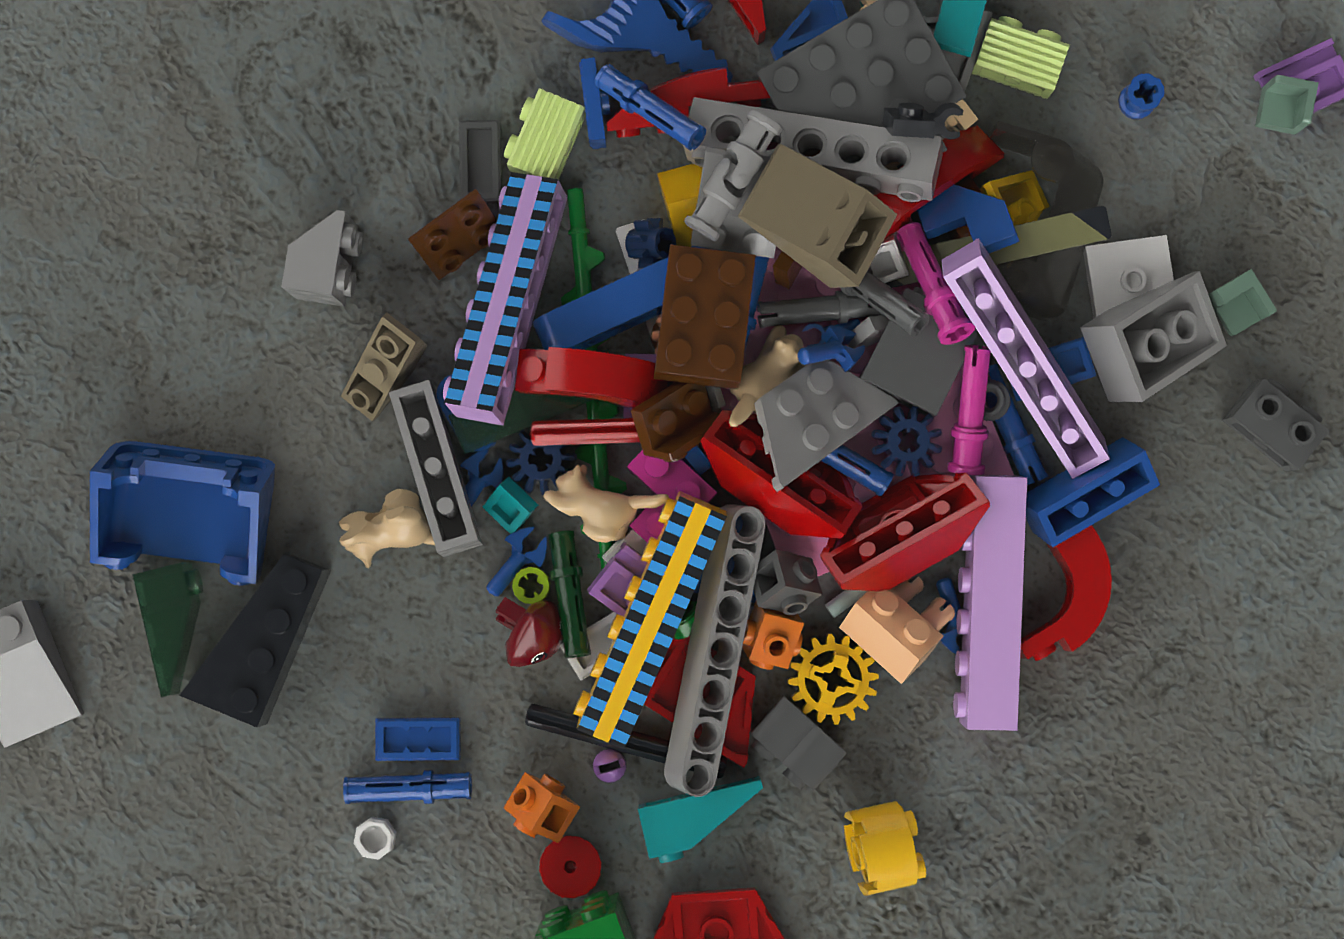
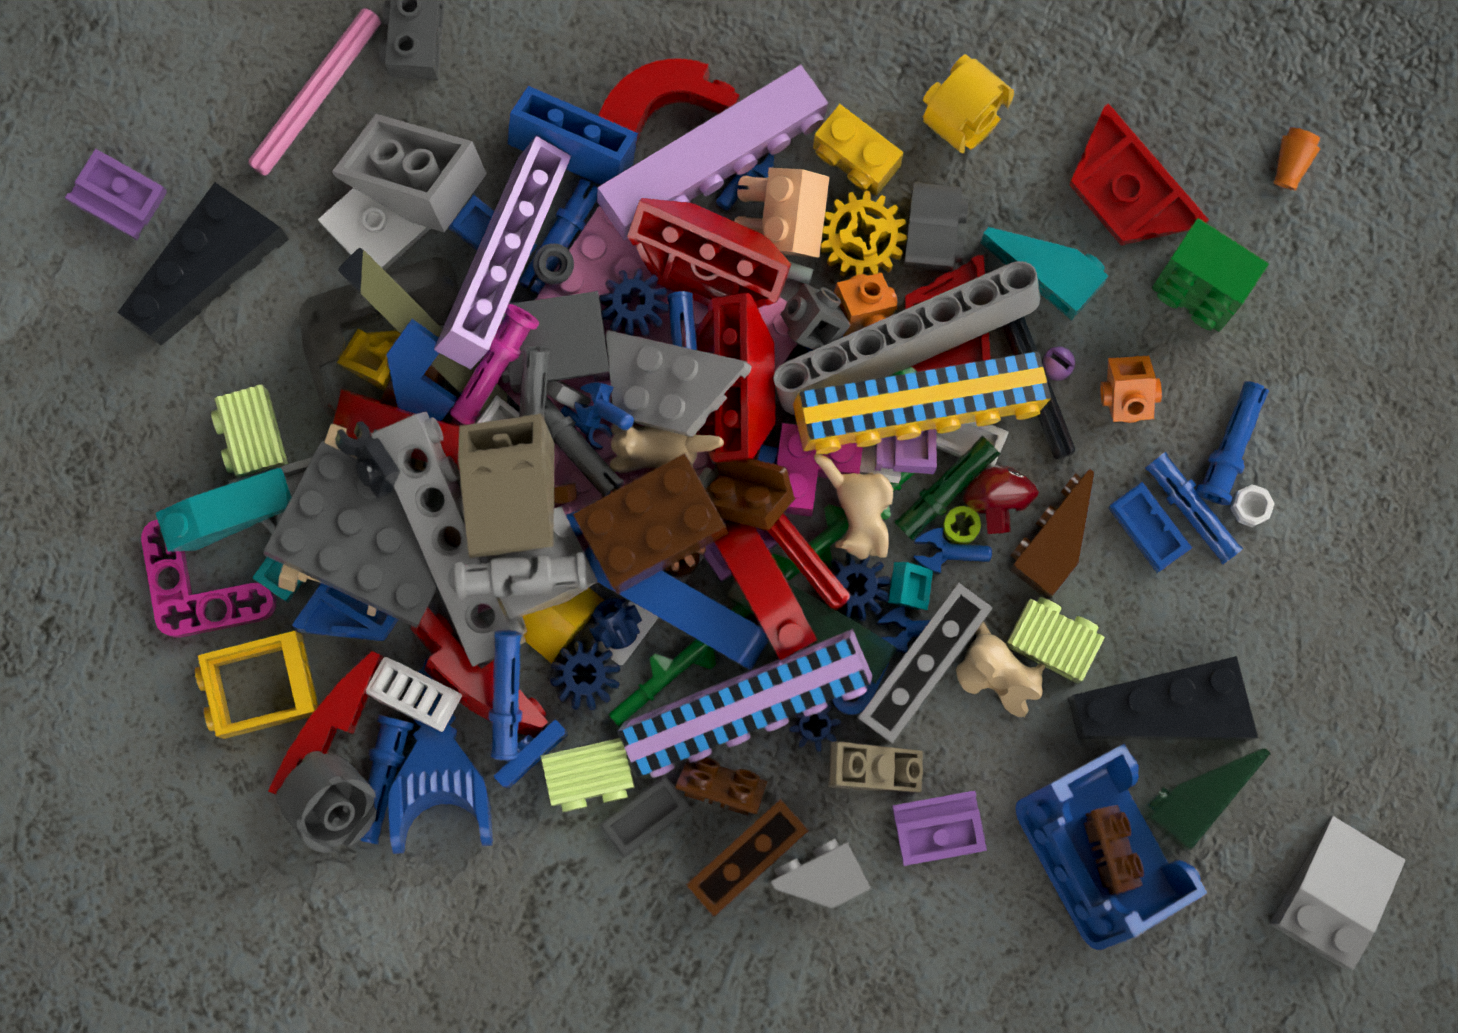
camera: 120 degrees left, 5 degrees down
(163, 509) = (1112, 830): none -> reddish brown hinge
(300, 388) = (939, 828): none -> medium lavender plate
(380, 591) = (1055, 640): none -> yellowish green brick
(384, 214) = (747, 858): none -> reddish brown brick
(427, 845) = (1227, 460): none -> blue pin
(447, 334) = (807, 735): none -> dark blue gear
(455, 646) = (1057, 547): none -> reddish brown slope
(570, 867) = (1160, 335): red piece -> none
(639, 197) = (588, 661): none -> dark blue gear
(730, 29) = (392, 680): none -> white slope
(910, 726) = (857, 150): none -> yellow brick
(970, 431) = (590, 259): dark pink pin -> none
(1145, 85) = (212, 325): blue bush -> none
(1197, 114) = (200, 263): none -> black wedge
(1241, 303) = (332, 125): sand green panel -> none
(1286, 104) = (148, 192): sand green panel -> none
(1286, 318) = (314, 92): none -> bright pink axle

